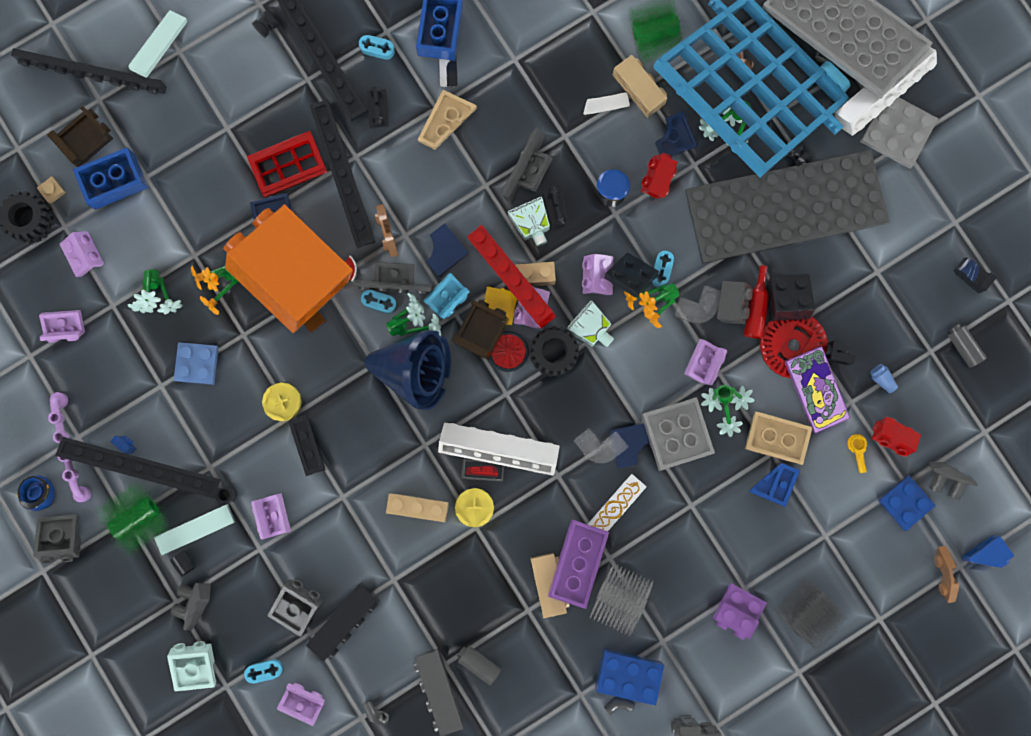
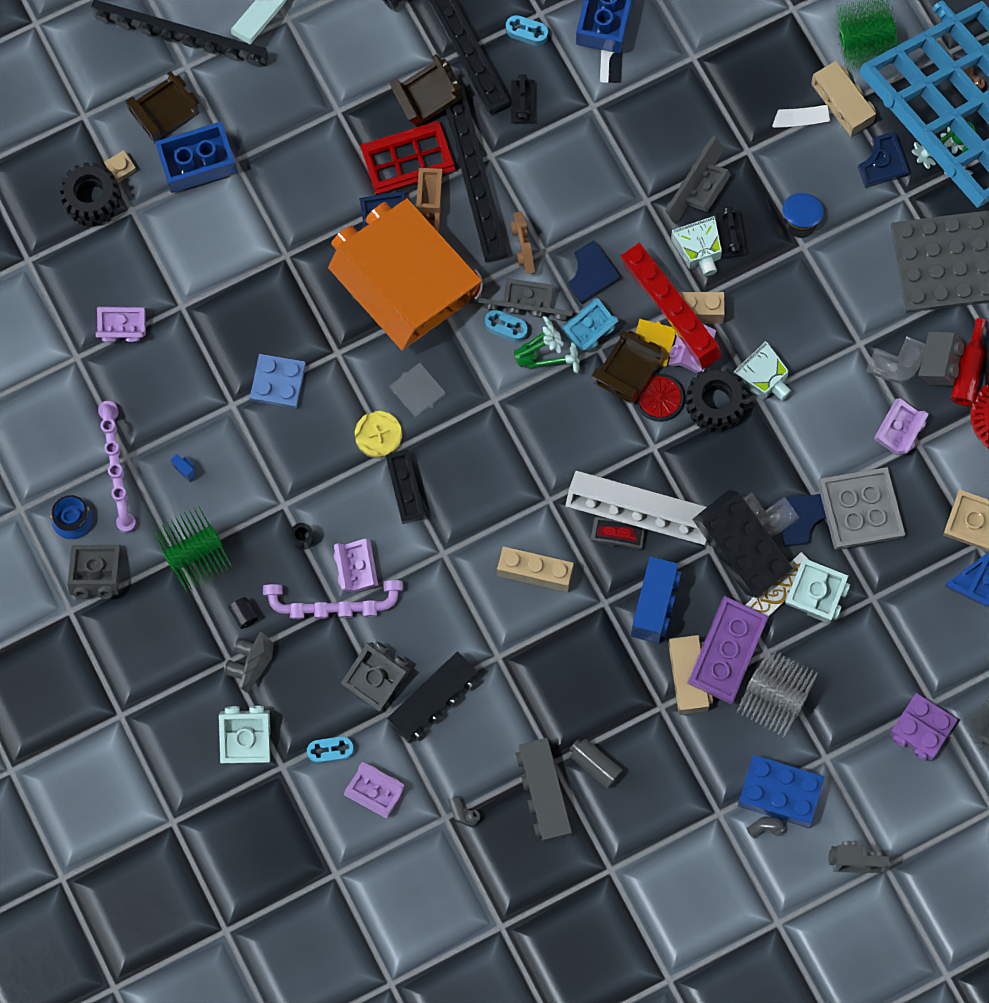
camera: 10 degrees right, 10 degrees down
(81, 253) = (150, 241): lavender bracket -> none
(137, 467) = (202, 492): black plate -> none
(151, 281) = (236, 285): light aqua plant -> none
(194, 529) = (263, 573): light aqua tile -> none
(211, 278) = (310, 279): light orange plant -> none
(247, 554) = (322, 609): none -> lavender bar
(297, 107) = (427, 91): none -> dark brown panel
(307, 200) = (429, 195): none -> medium nougat slope
(311, 361) = (417, 390): none -> clear piece
(315, 322) = (426, 344): reddish brown tile -> none
(414, 368) = (544, 400): dark blue cone -> none
(445, 118) = (603, 119): tan wing -> none
(474, 507) = (604, 578): light yellow tile -> none
(517, 528) = (656, 600): none -> blue brick
(584, 475) = (742, 543): none -> black brick
(594, 273) = (776, 314): lavender bracket -> none
(631, 275) = (817, 315): black plate -> none
(647, 507) = (817, 591): none -> light aqua plate
(658, 178) = (859, 204): red brick -> none
(666, 270) = (861, 316): medium azure beam -> none
(667, 293) = (858, 341): plant -> none
(724, 395) = (918, 463): light aqua plant -> none

